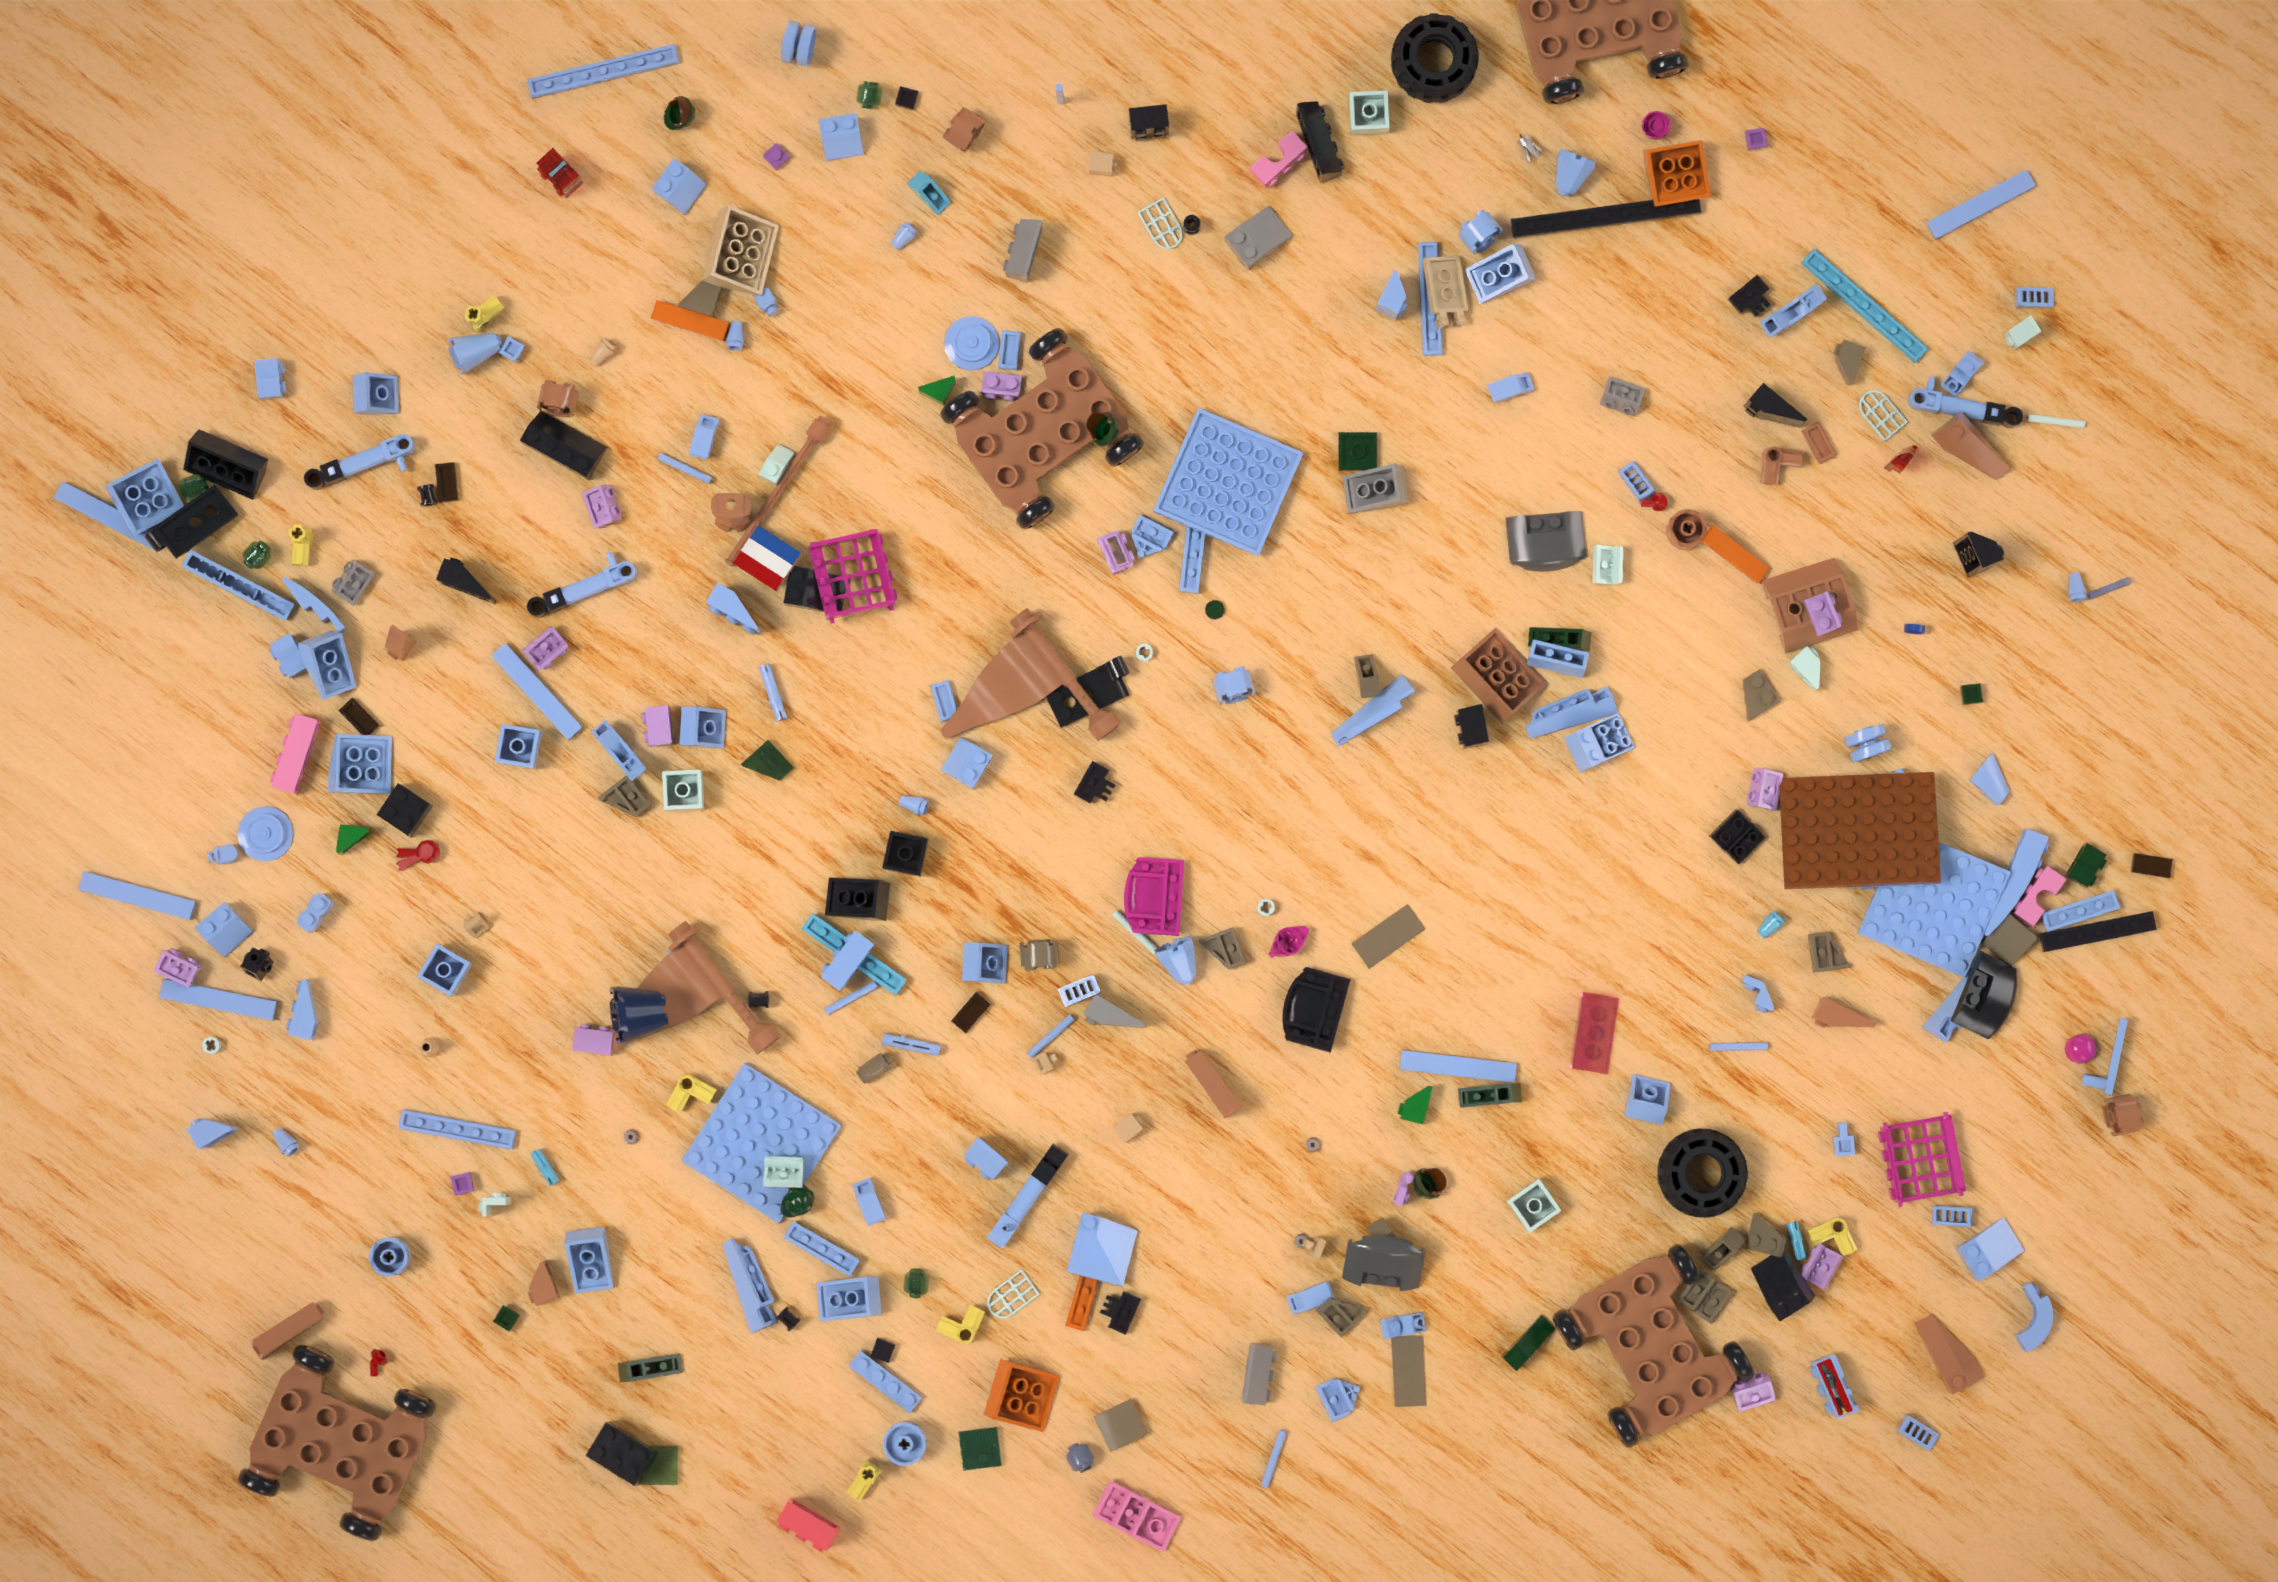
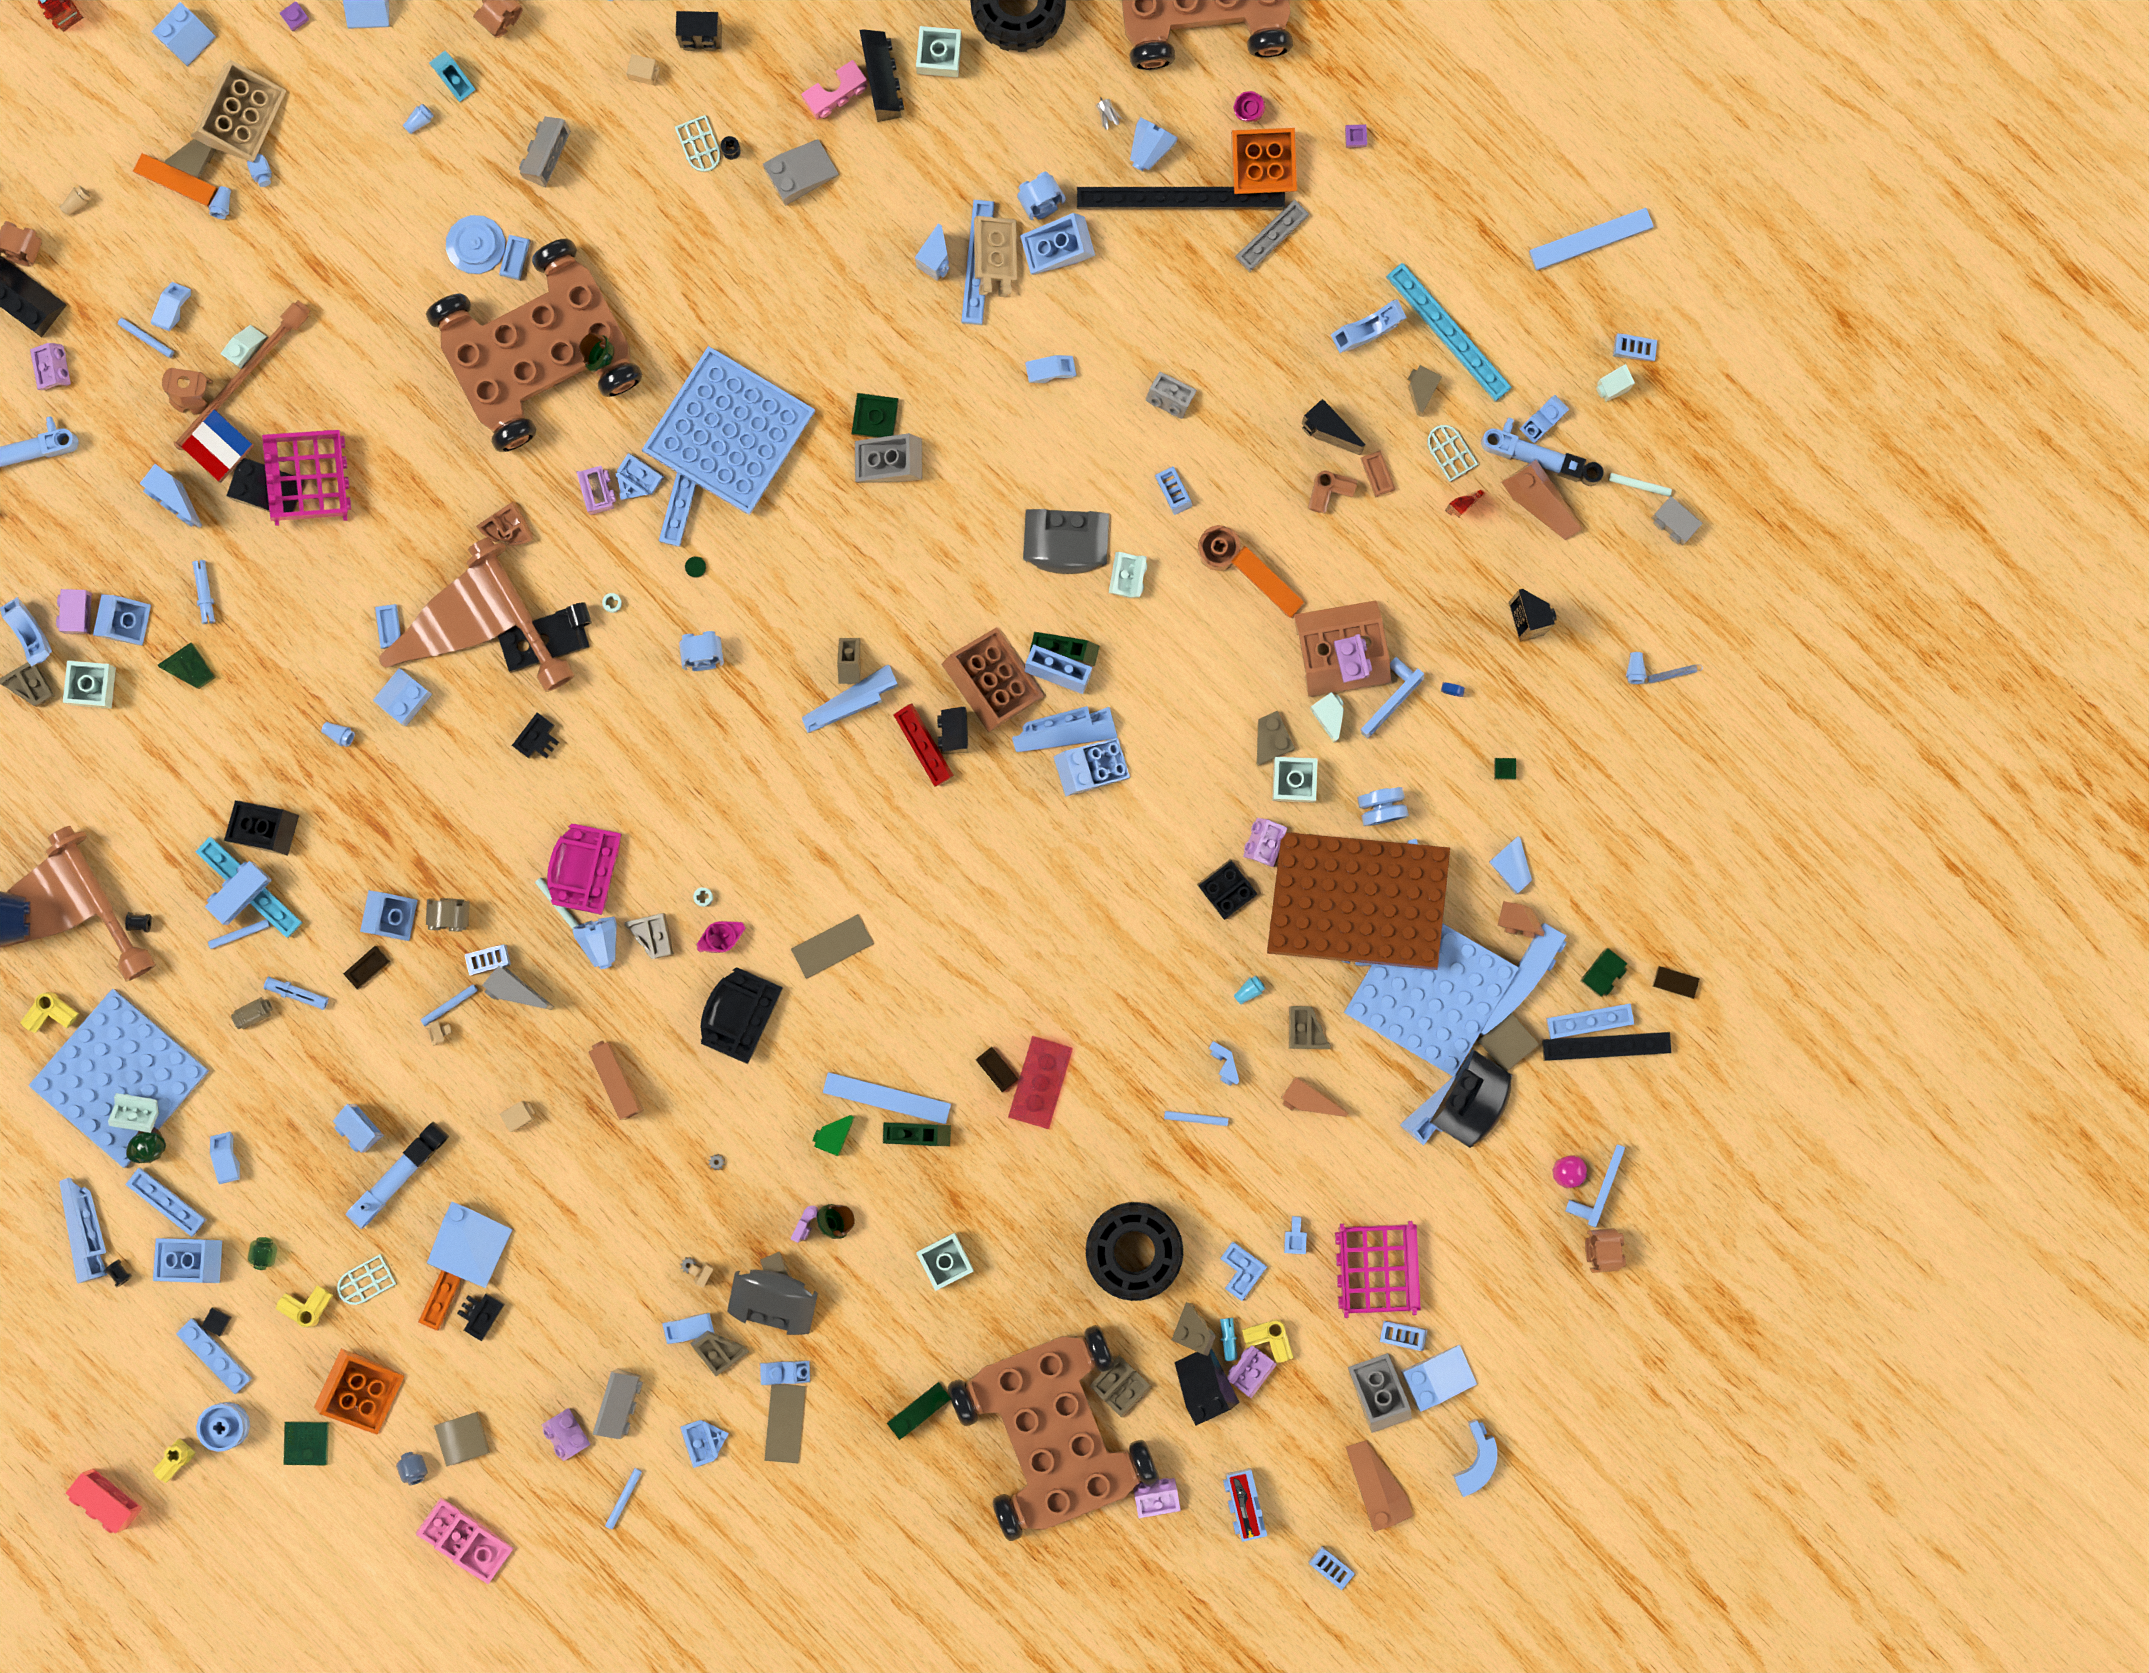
camera: 15 degrees right, 0 degrees up
(905, 853) = (319, 785): black brick -> none
(938, 390) = (431, 289): green slope -> none
(1001, 385) = (499, 294): lavender bracket -> none
(1038, 595) = (507, 526): none -> nougat brick
(1213, 1408) = (565, 1434): none -> lavender bracket
(1445, 743) = (923, 745): none -> red plate
(1553, 1027) = (996, 1069): none -> dark brown tile
(1647, 1099) = (1087, 1162): light blue slope -> none
(1658, 502) = (1193, 514): red plate -> none
(1692, 239) = (1272, 236): none -> light grey tile
(1723, 1248) = (1146, 1336): dark tan slope -> none
(1750, 297) = (1325, 305): black hinge -> none
(1784, 729) = (1294, 779): none -> light aqua brick
(1804, 1177) = (1247, 1268): none -> light blue tile
(1876, 626) = (1411, 679): none -> light blue piece
(1939, 1270) = (1380, 1393): none -> light grey slope
(2004, 827) = (1519, 918): none -> nougat slope
(2027, 908) = (1557, 983): bright pink arch -> none
(2093, 449) = (1676, 521): none -> light grey brick

